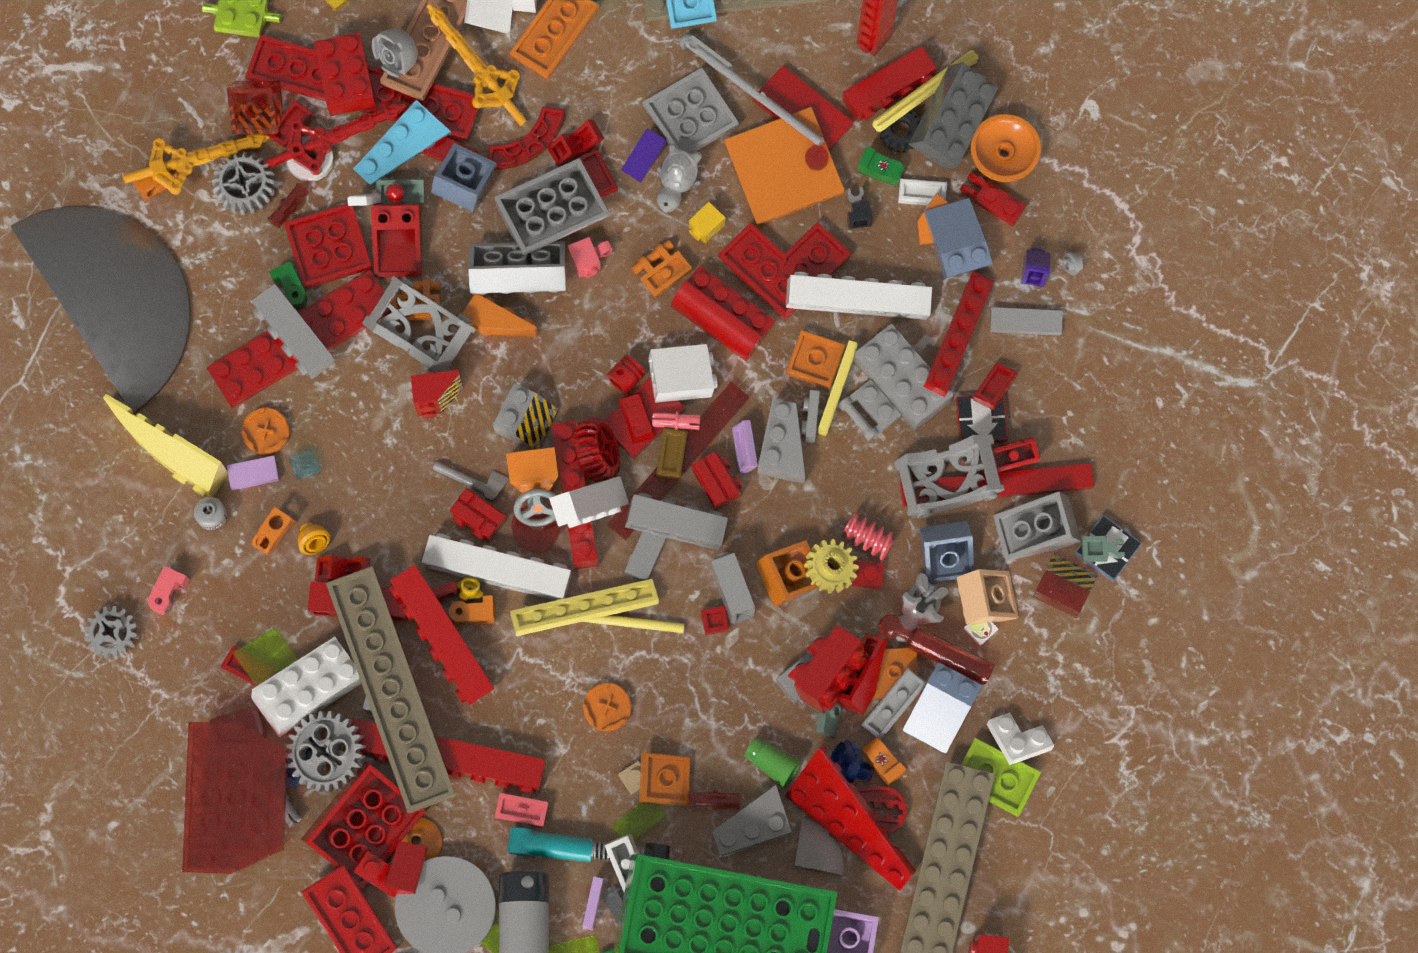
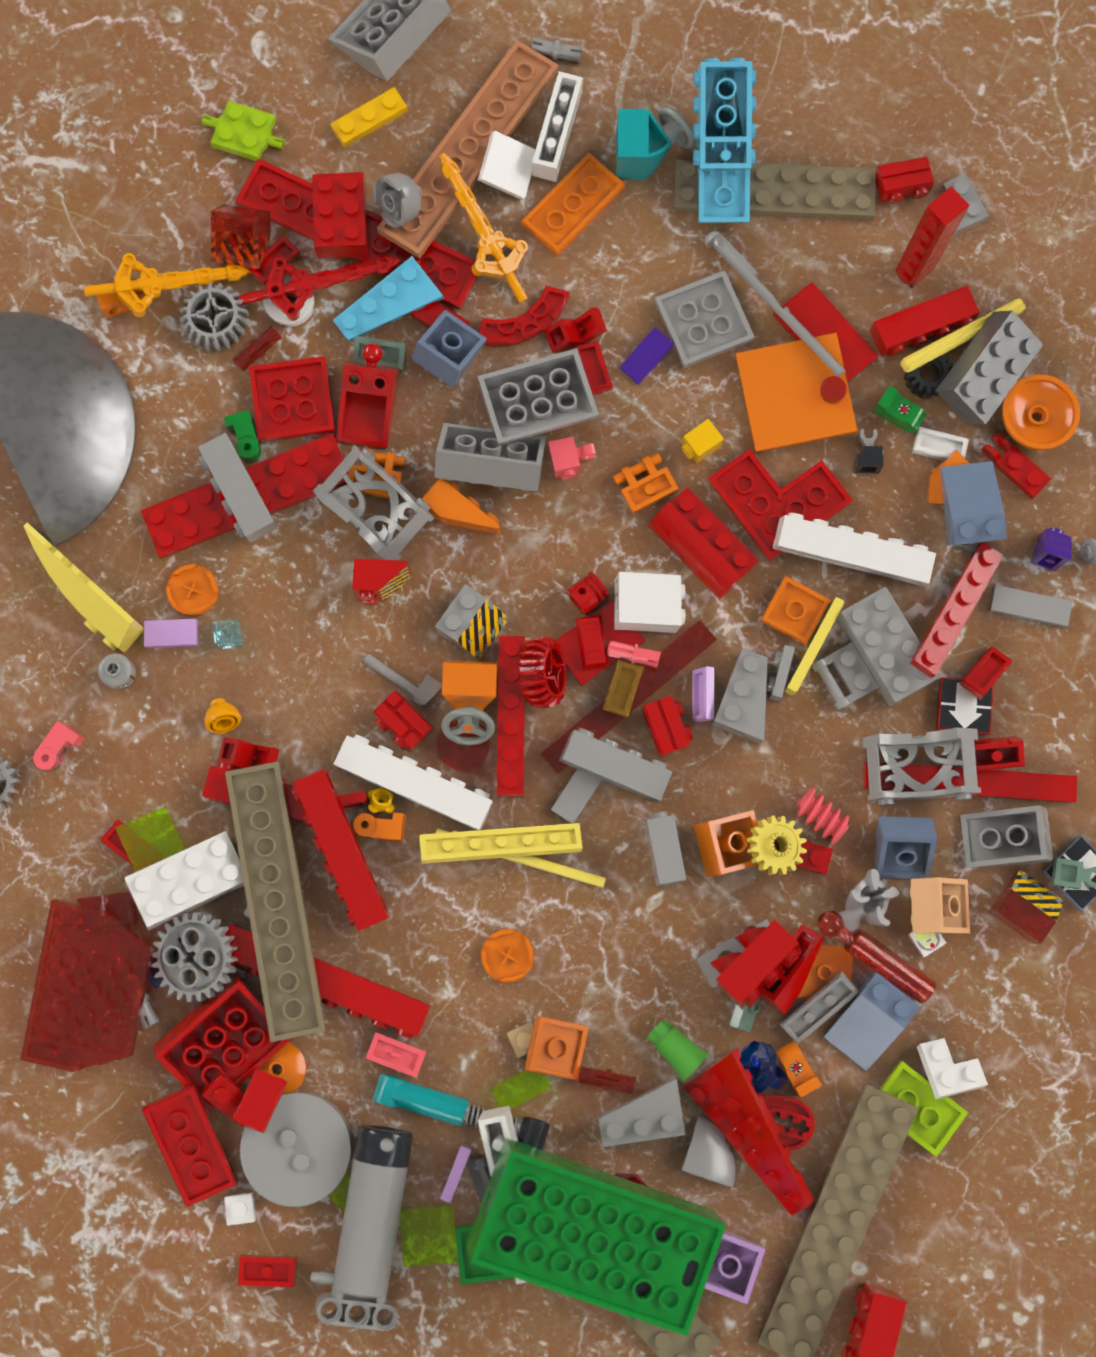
camera: 10 degrees right, 5 degrees up
(272, 531) = (181, 701): orange leg -> none
(364, 199) = (338, 355): white tile -> none
(589, 502) = (524, 732): white brick -> none
(677, 176) = (679, 385): light grey animal -> none
(714, 620) = (639, 880): red plate -> none

